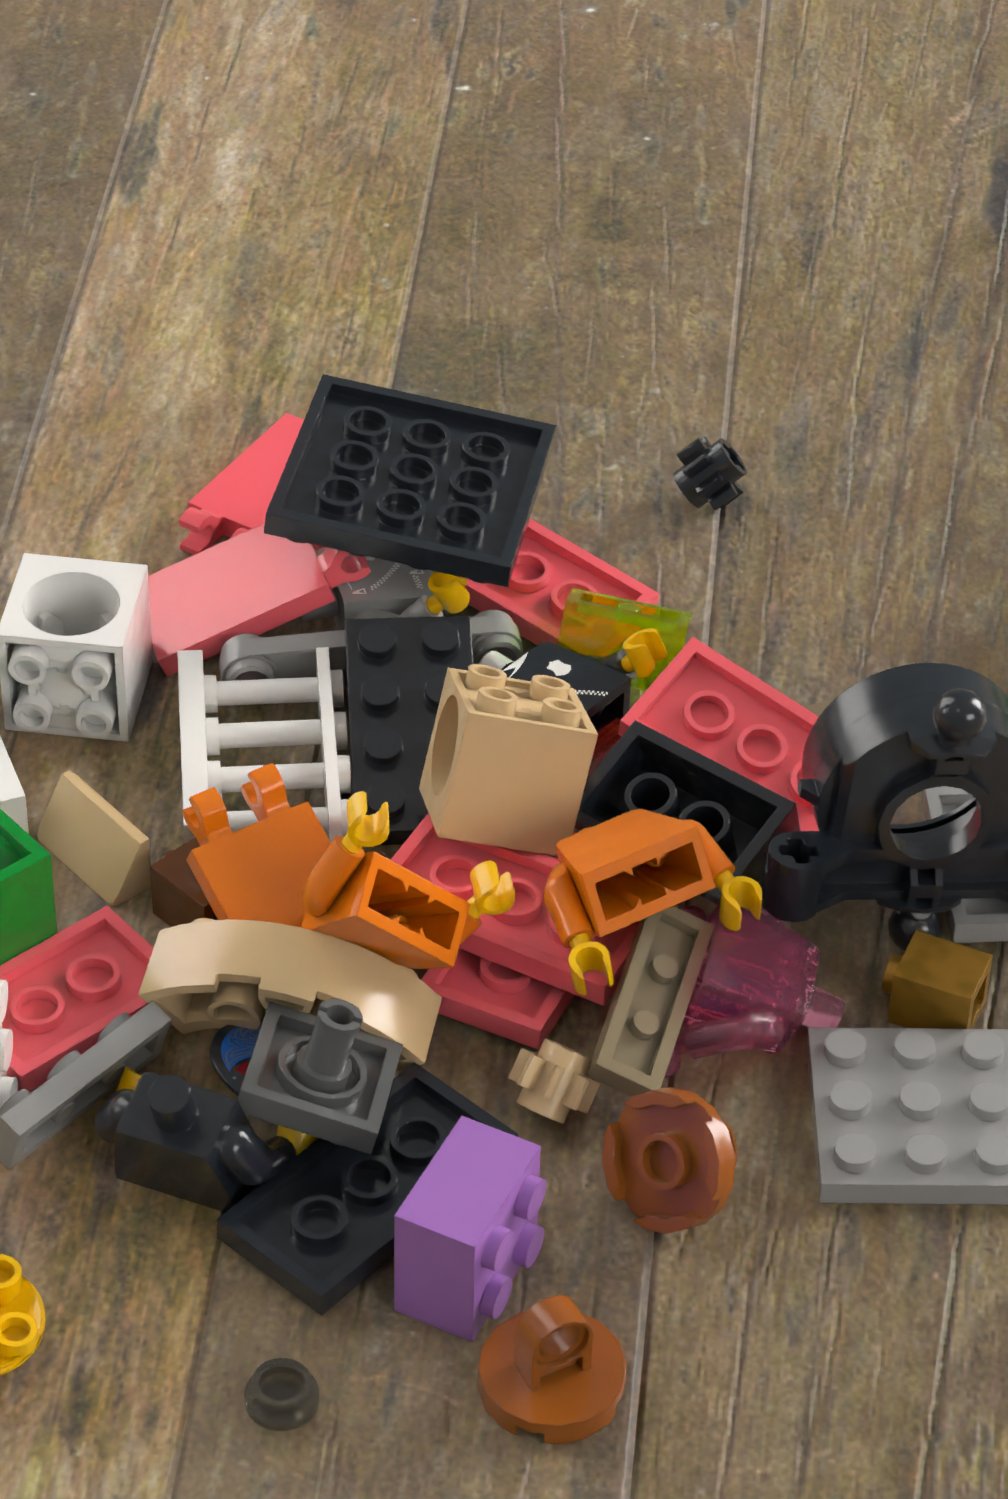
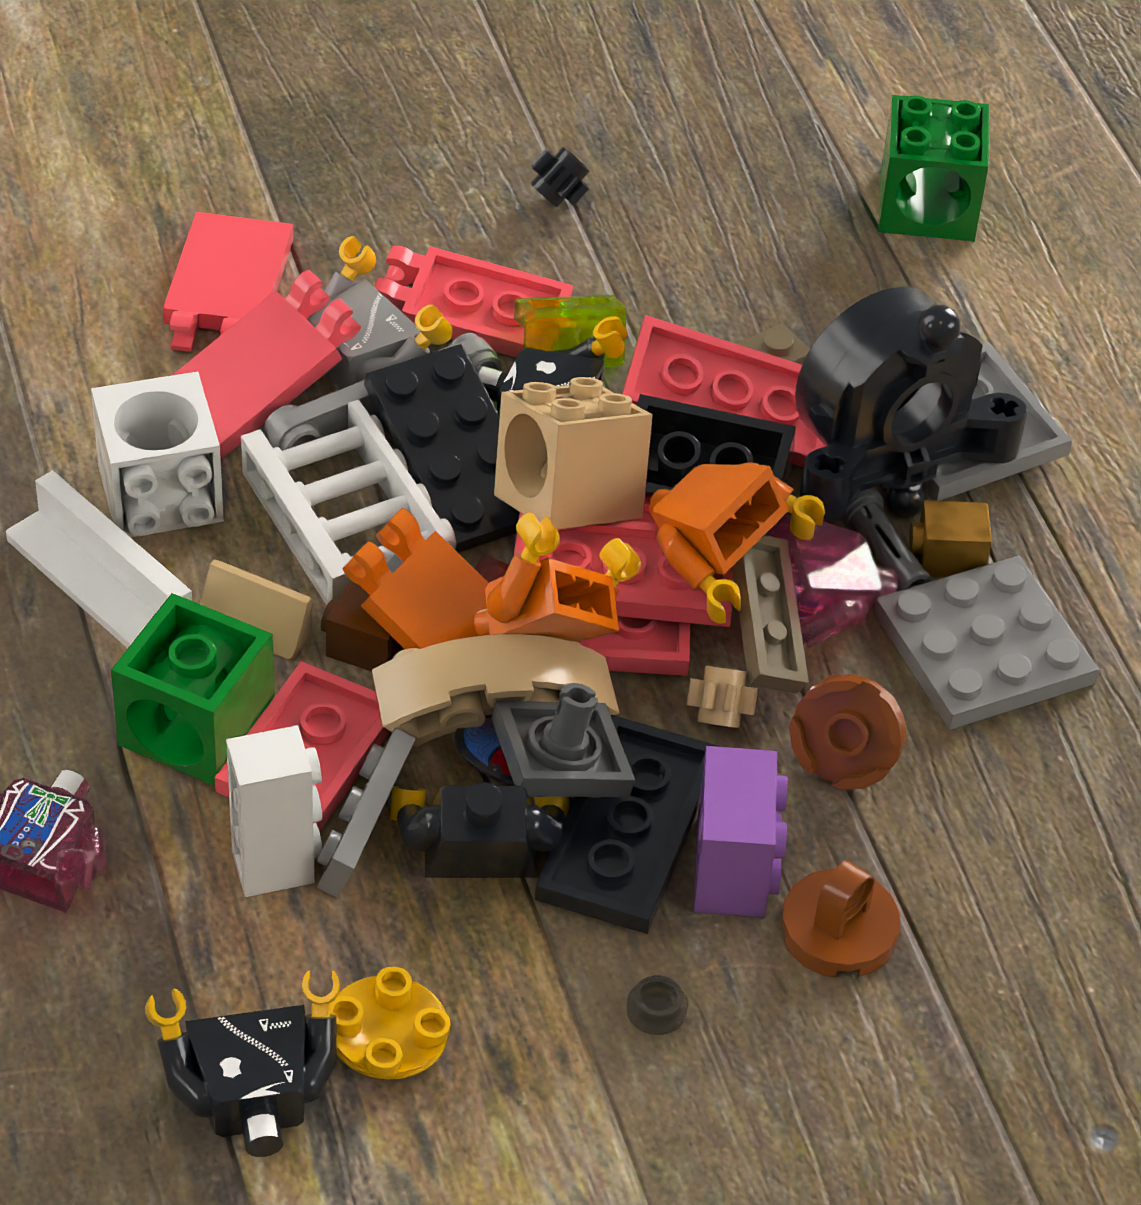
camera: 25 degrees left, 5 degrees up
(411, 480) = (368, 244): black plate -> none
(851, 927) = (867, 517): none -> dark grey pin

